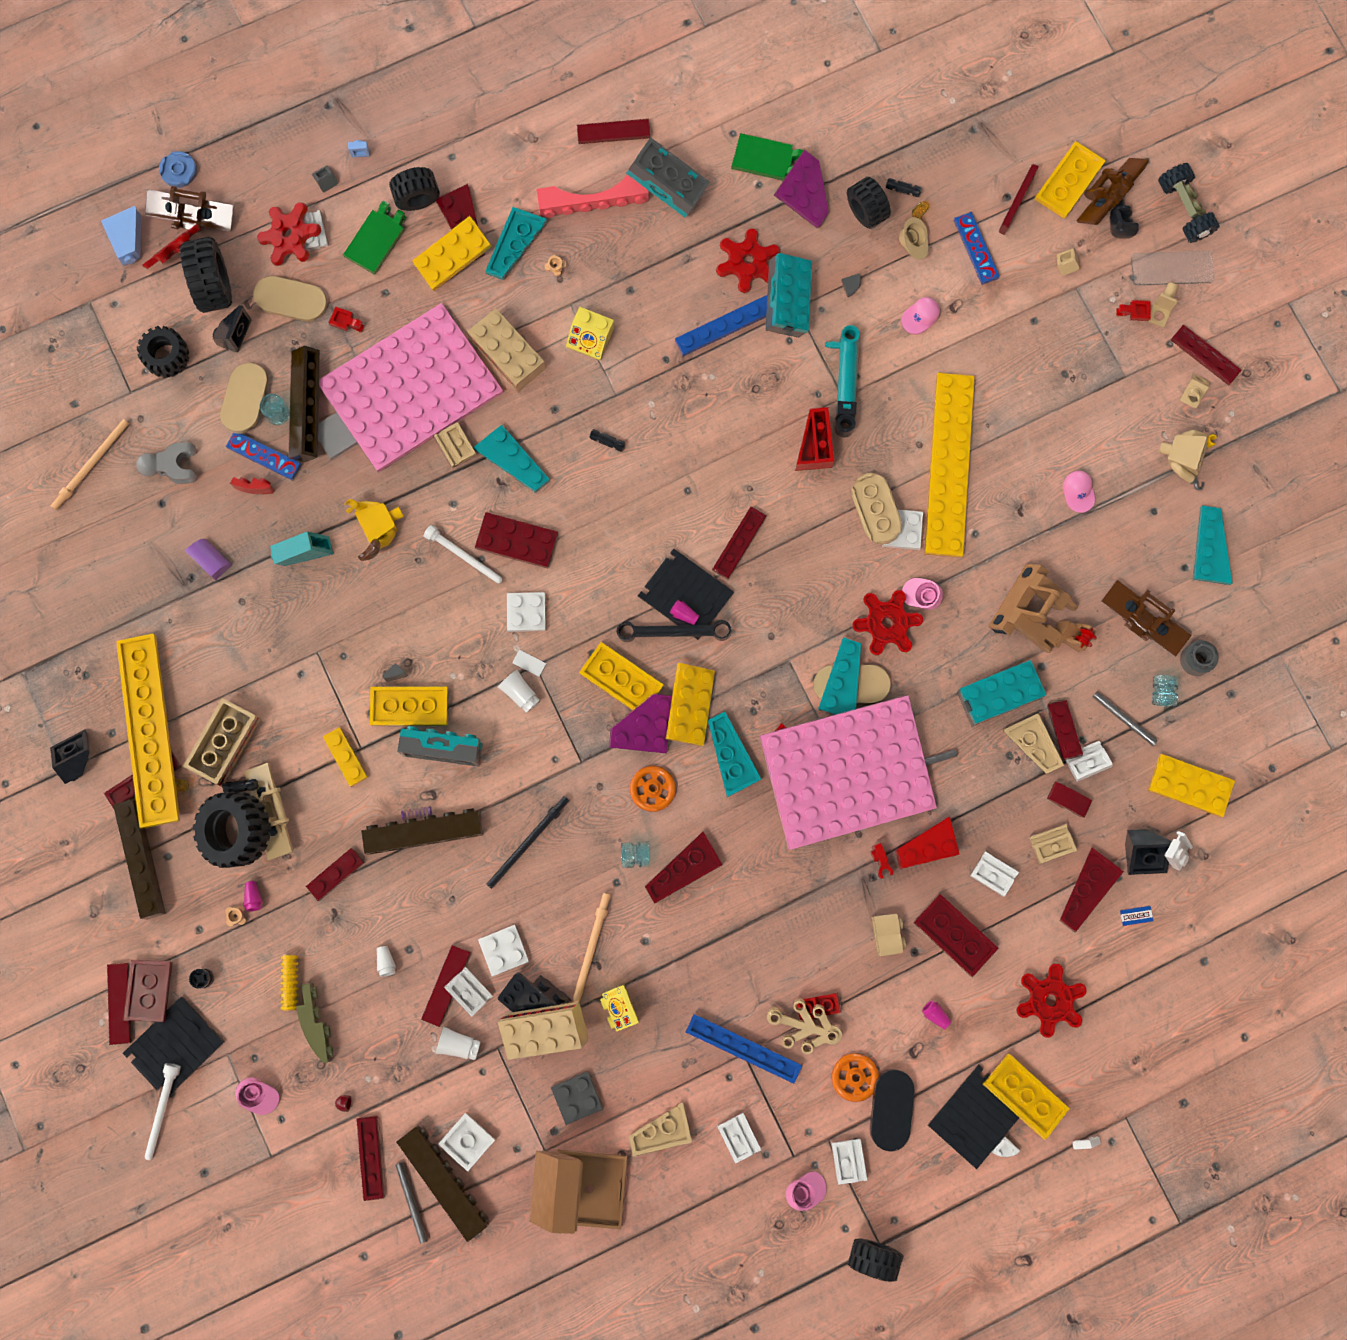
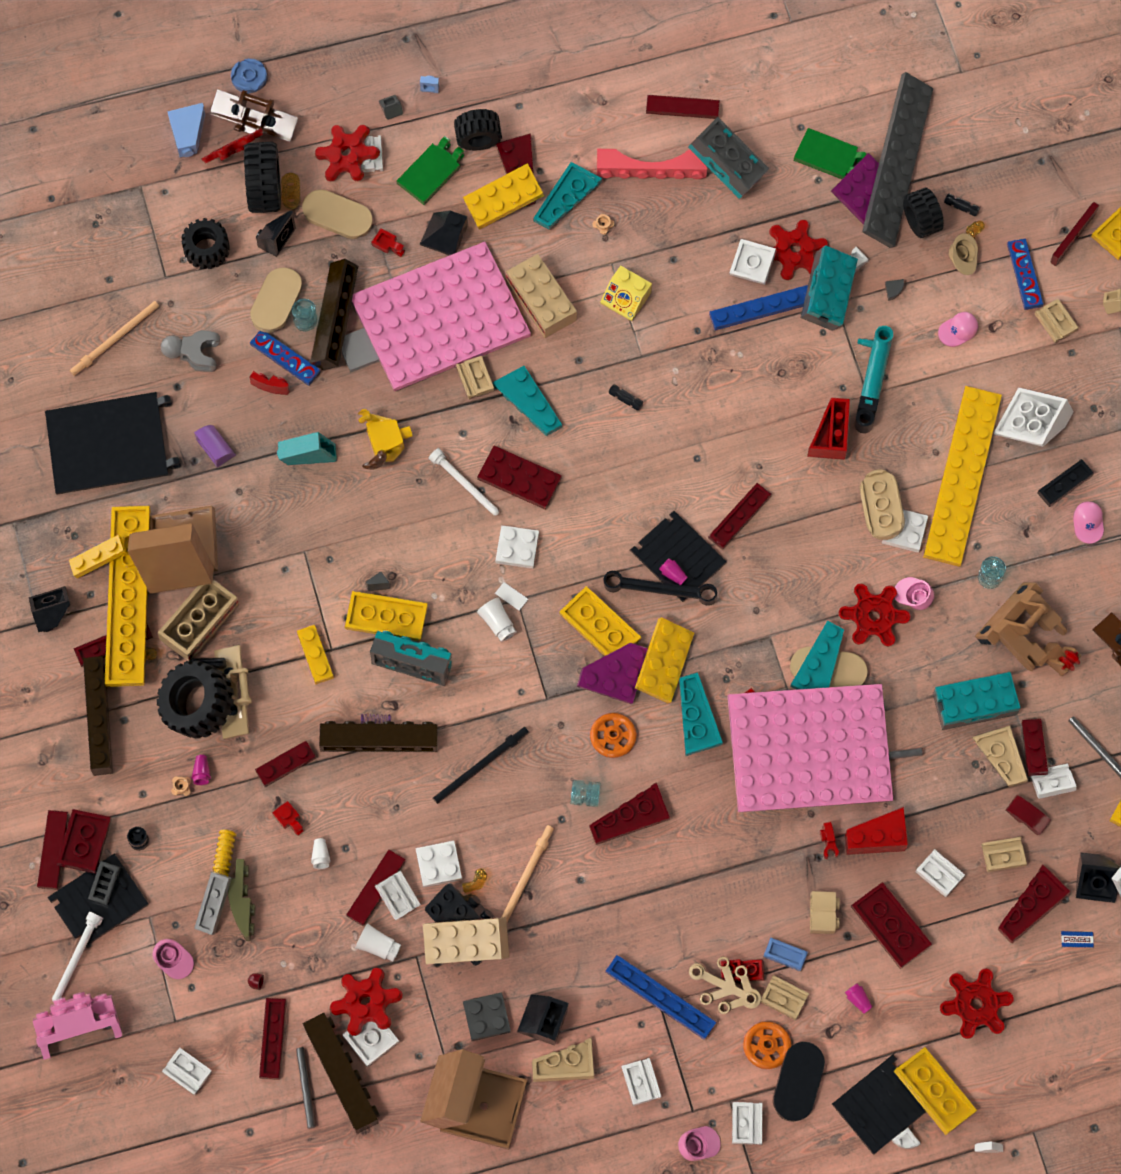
camera: 10 degrees right, 10 degrees down
(102, 574) = (108, 442): none -> black flag
(110, 695) = (97, 556): none -> yellow plate
(168, 1179) = (75, 1018): none -> bright pink piece
(177, 1012) = (100, 872): none -> dark grey slope
(190, 677) = (176, 550): none -> medium nougat container
(239, 283) = (291, 192): none -> clear yellow plate
(286, 1033) = (213, 903): none -> light grey plate
(291, 1208) = (187, 1071): none -> white plate
(345, 928) = (288, 816): none -> red plate
(400, 300) = (445, 232): none -> black slope
(468, 1103) = (373, 1011): none -> red plate
(545, 962) = (477, 882): none -> clear yellow arm
(620, 1008) = (545, 935): light yellow slope -> none
(632, 1092) = (543, 1018): none -> black slope
(709, 280) = (753, 261): none -> white plate
(810, 255) = (862, 259): none -> white tile
(834, 152) = (897, 160): none -> dark grey plate
(857, 982) = (785, 954): none -> medium blue tile
(864, 1027) = (784, 997): none -> tan plate
(994, 560) = (991, 572): none -> clear light blue wheel
(1009, 394) = (1034, 417): none -> white slope
(1015, 291) = (1056, 320): none -> tan plate
(1050, 455) = (1065, 483): none -> black plate

